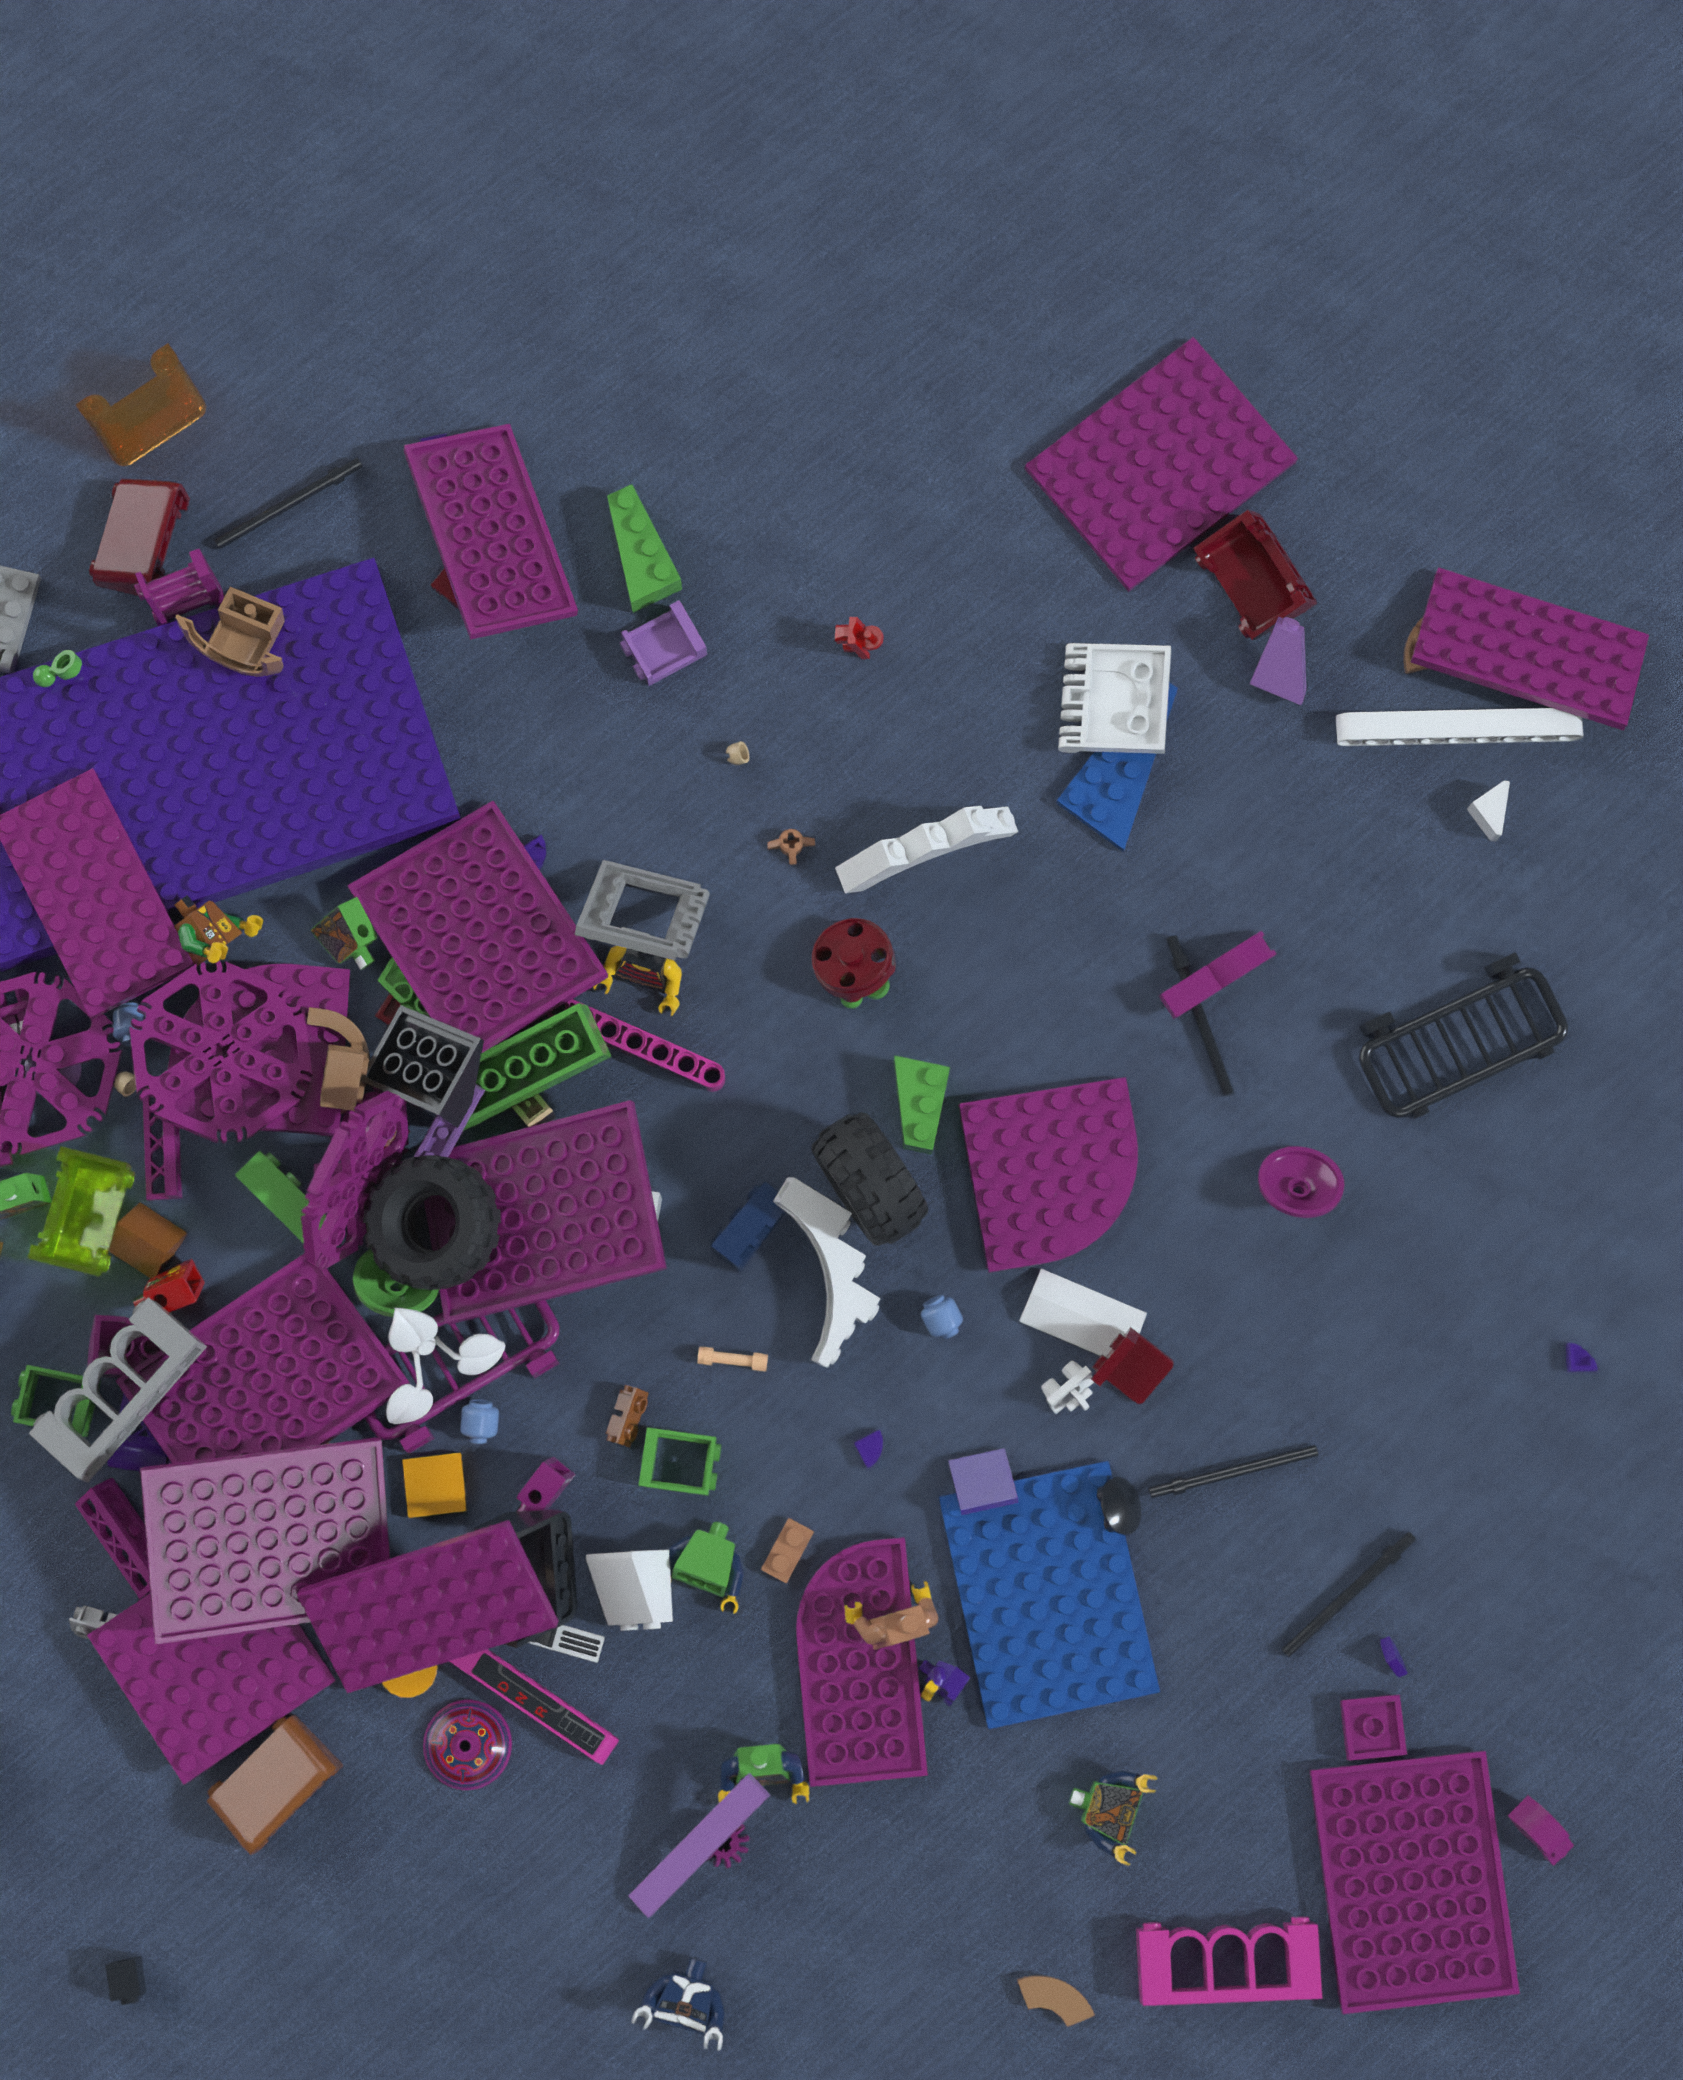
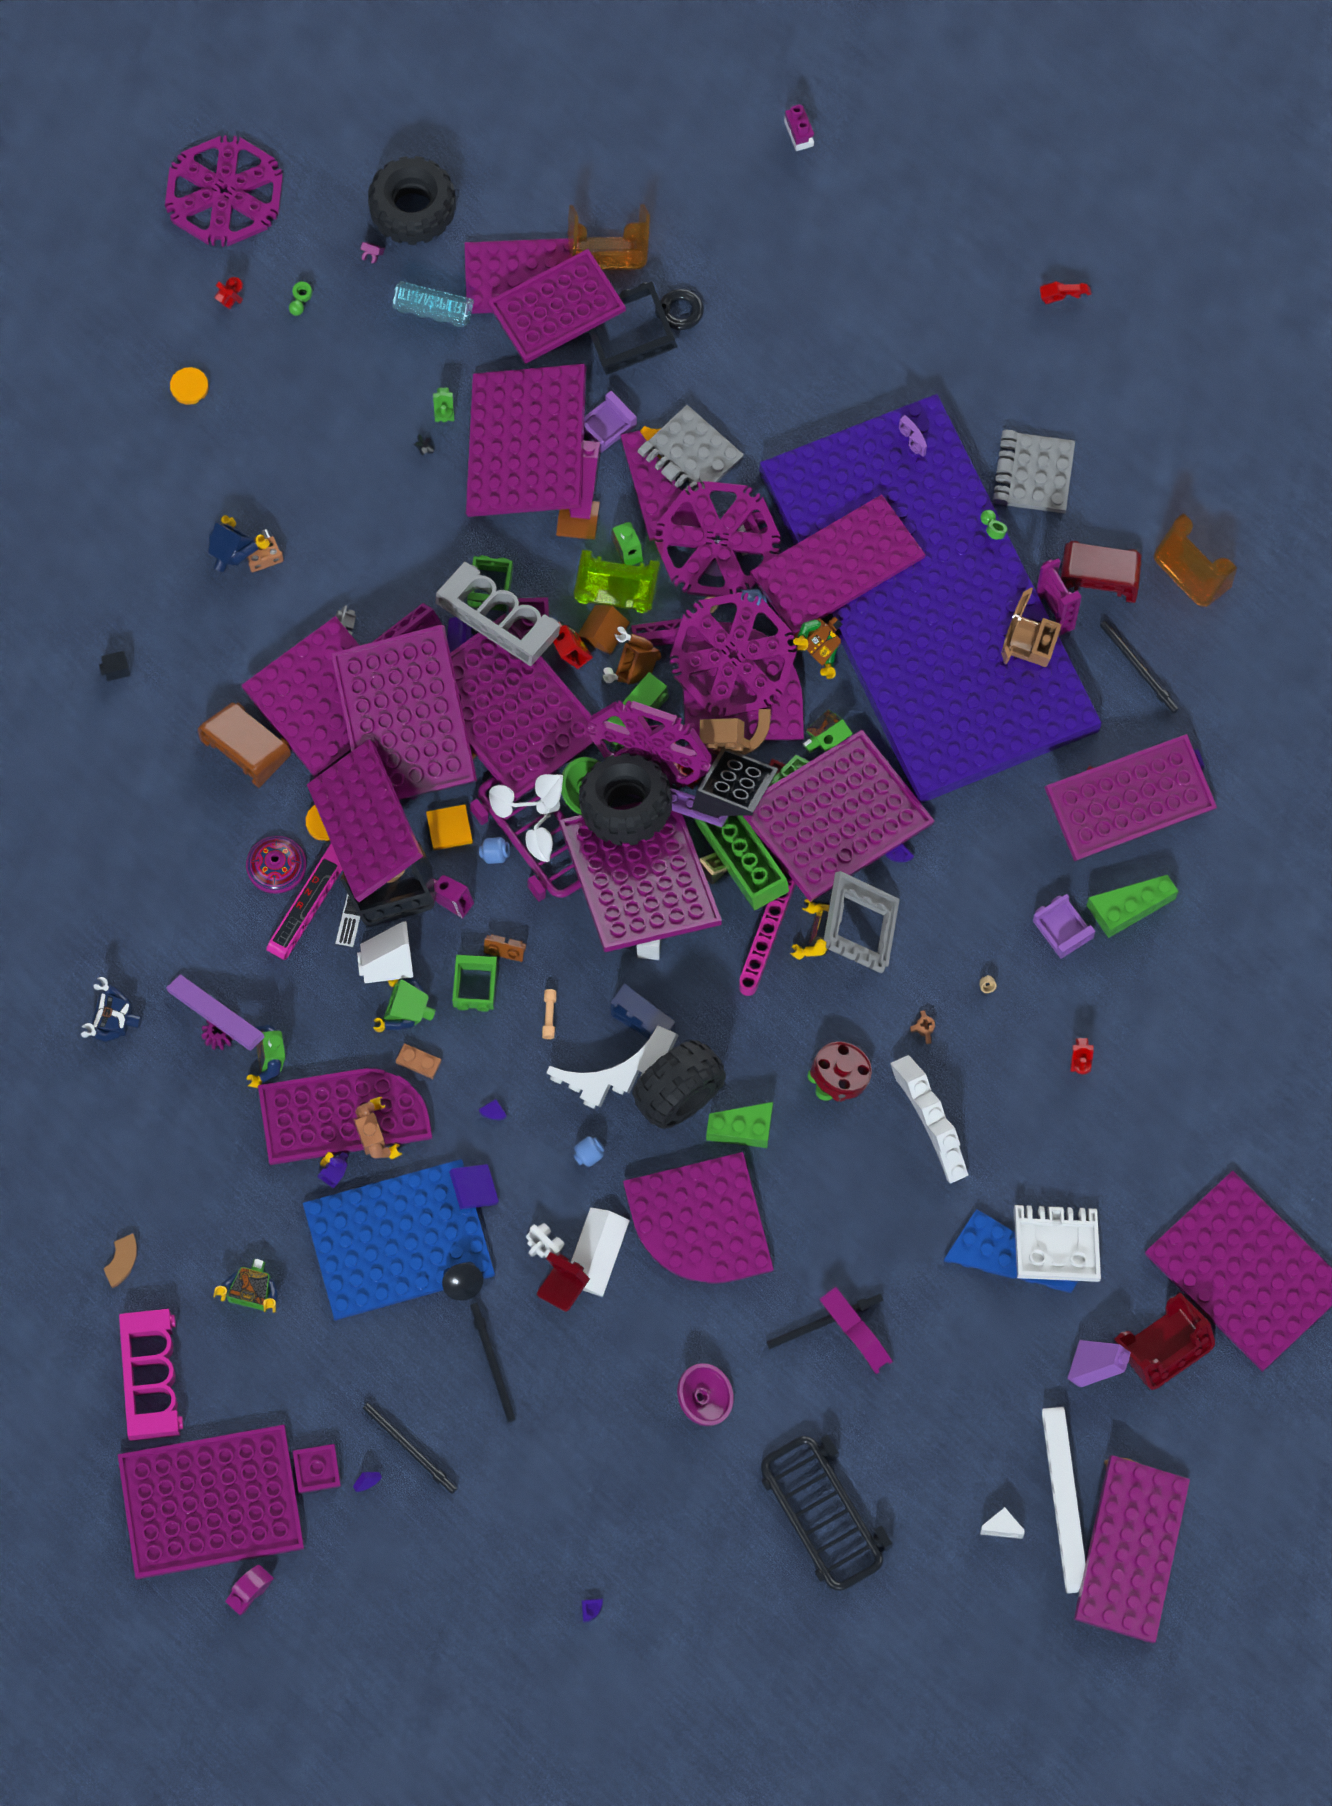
camera: 90 degrees right, 10 degrees down
(209, 1195) = (636, 659): none -> dark orange torso

